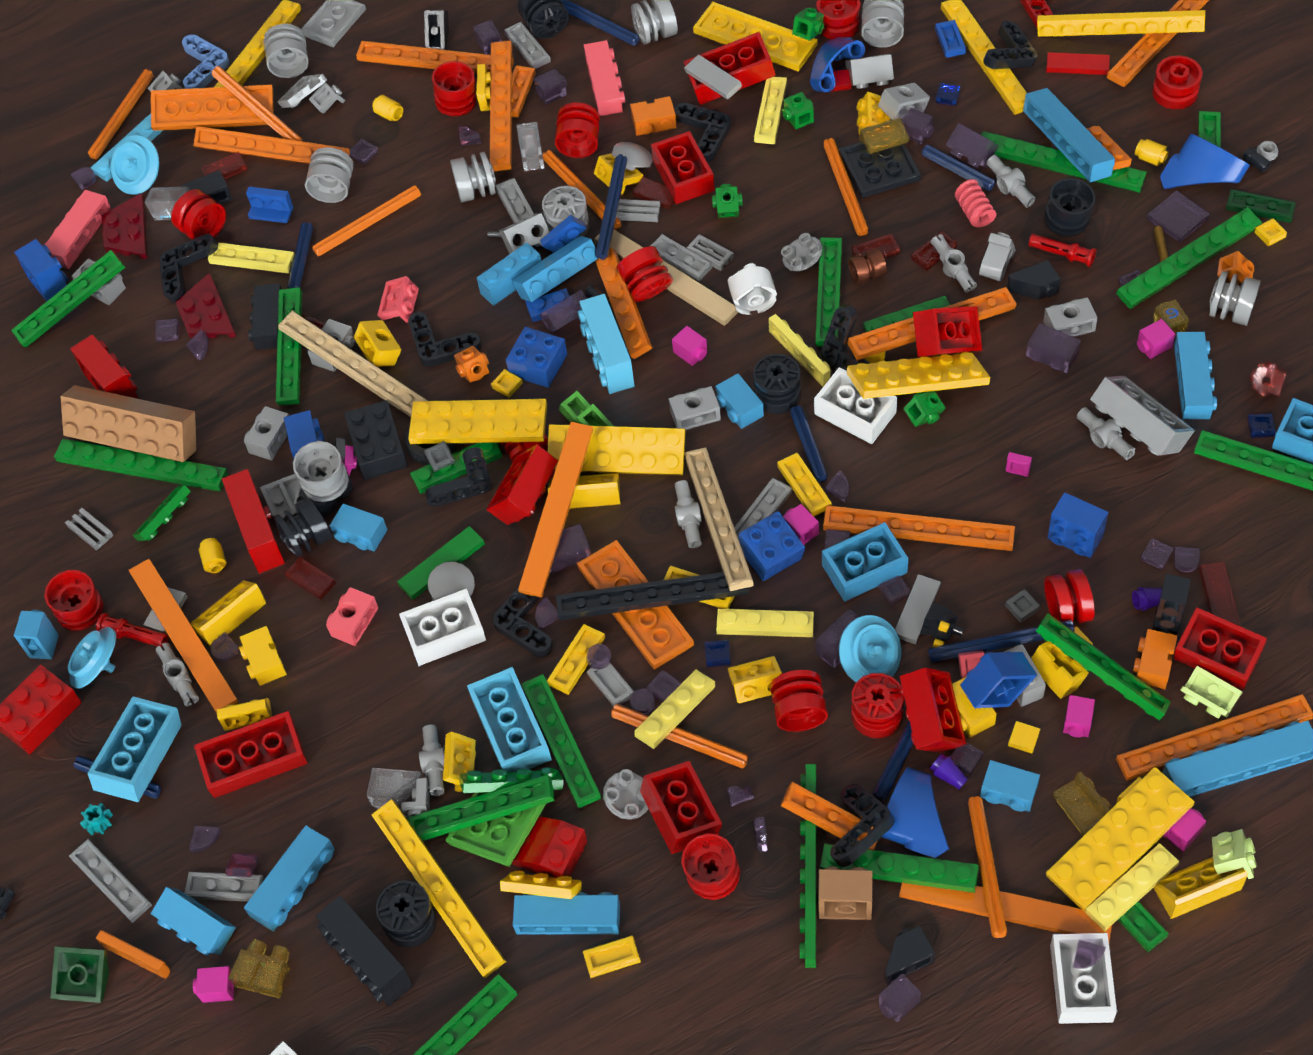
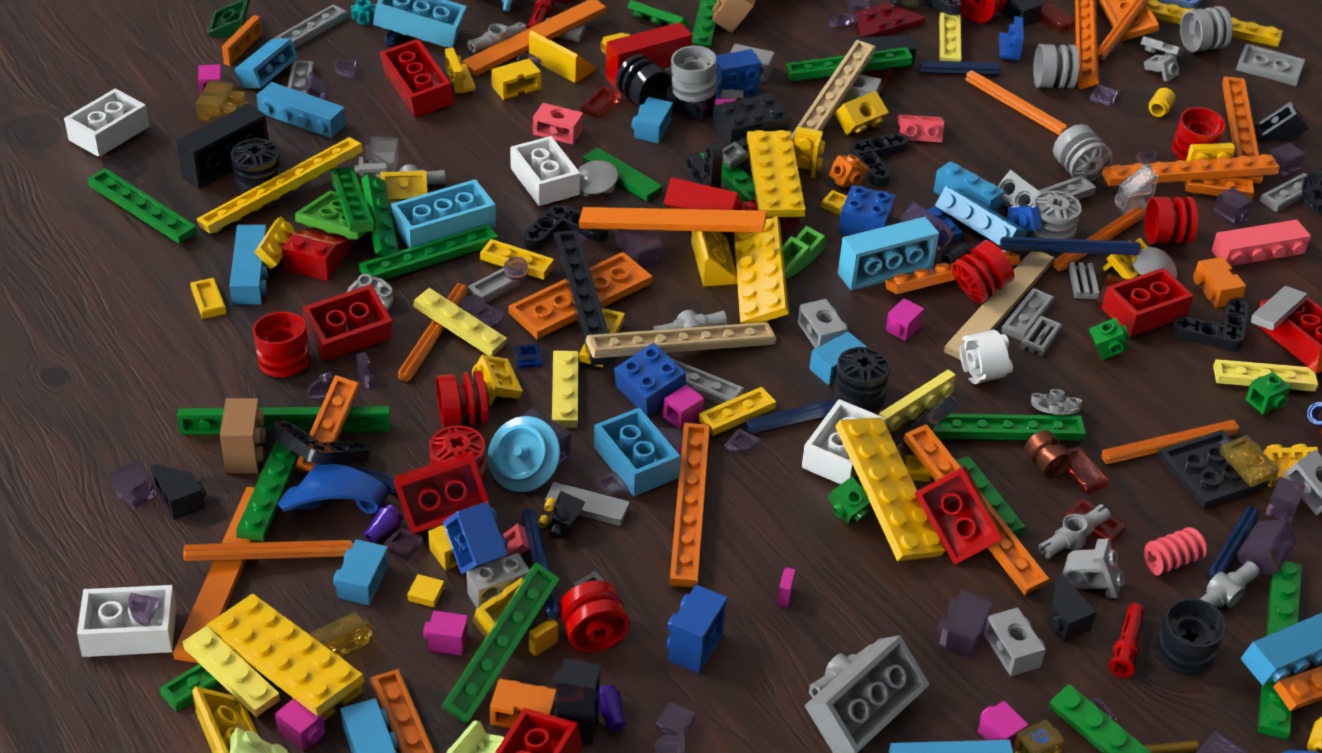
camera: 75 degrees right, 15 degrees down
(444, 386) = (807, 148): none -> yellow bracket

